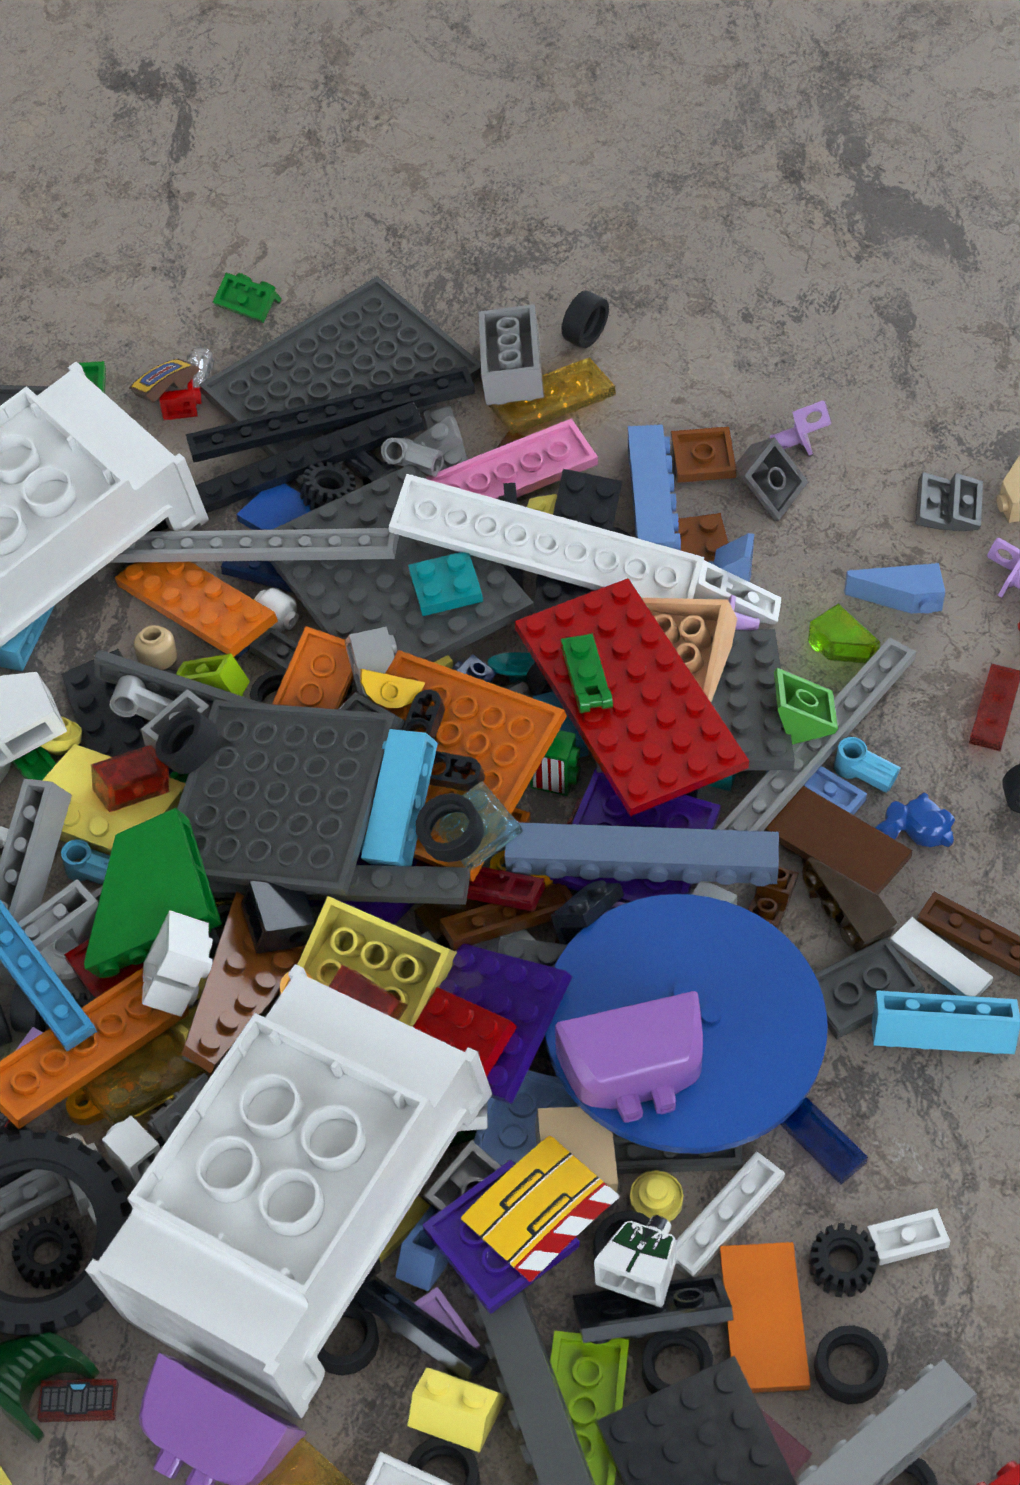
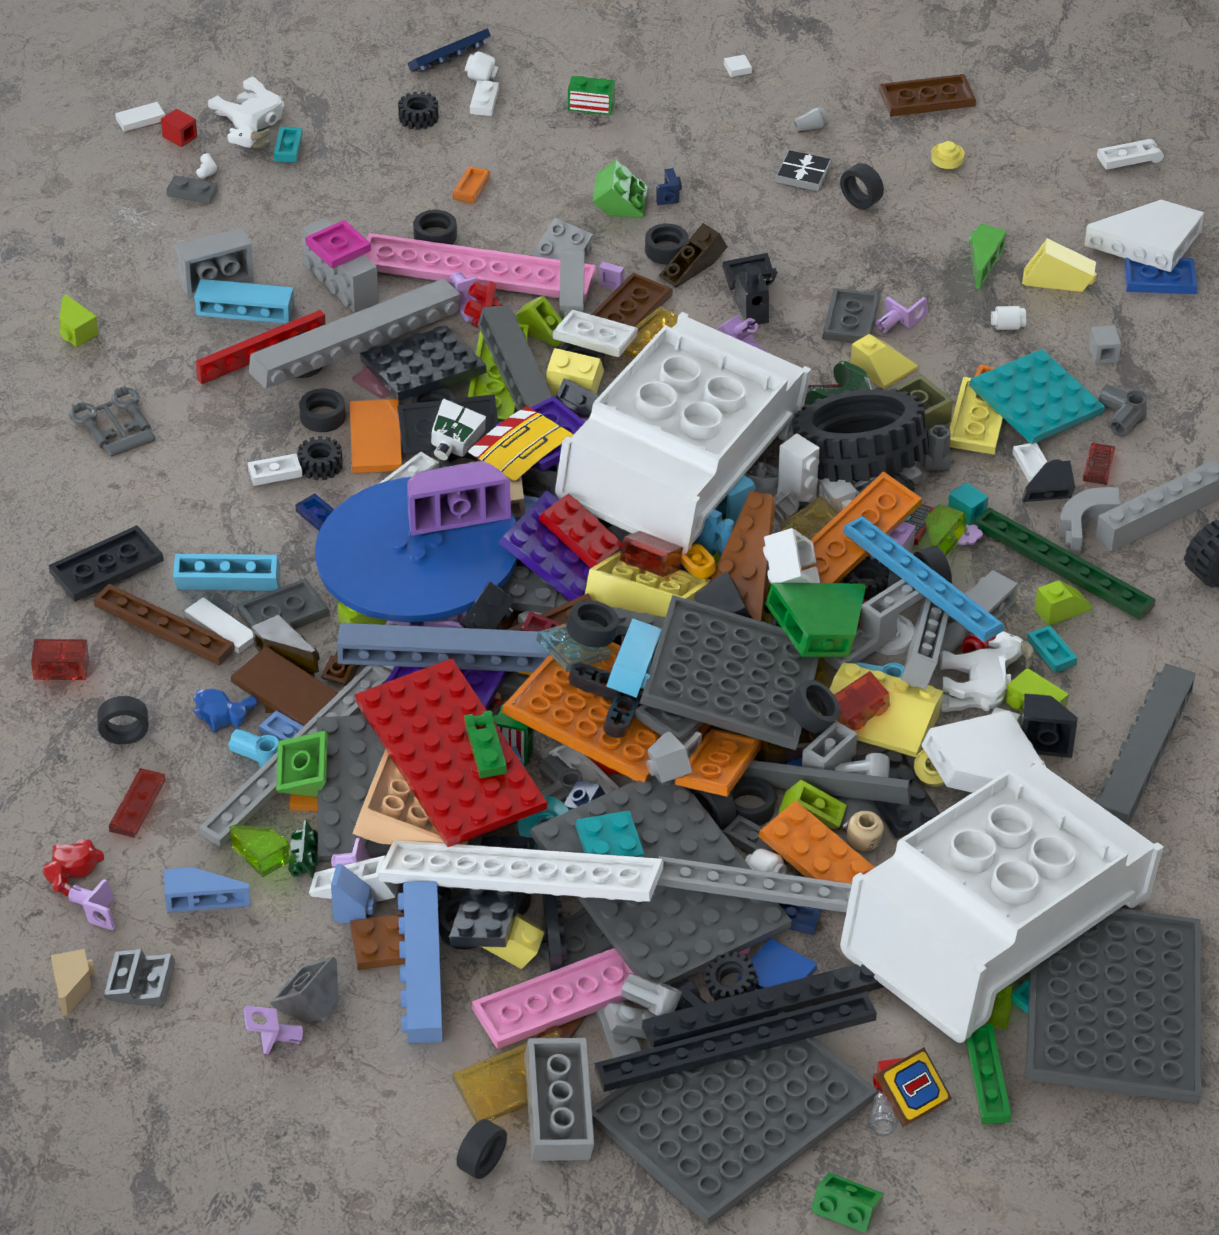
camera: 175 degrees right, 10 degrees down
(388, 689) = (646, 732): yellow plate -> none
(703, 454) = (368, 1021): dark orange plate -> none
(790, 629) = (304, 851): none -> dark green hinge

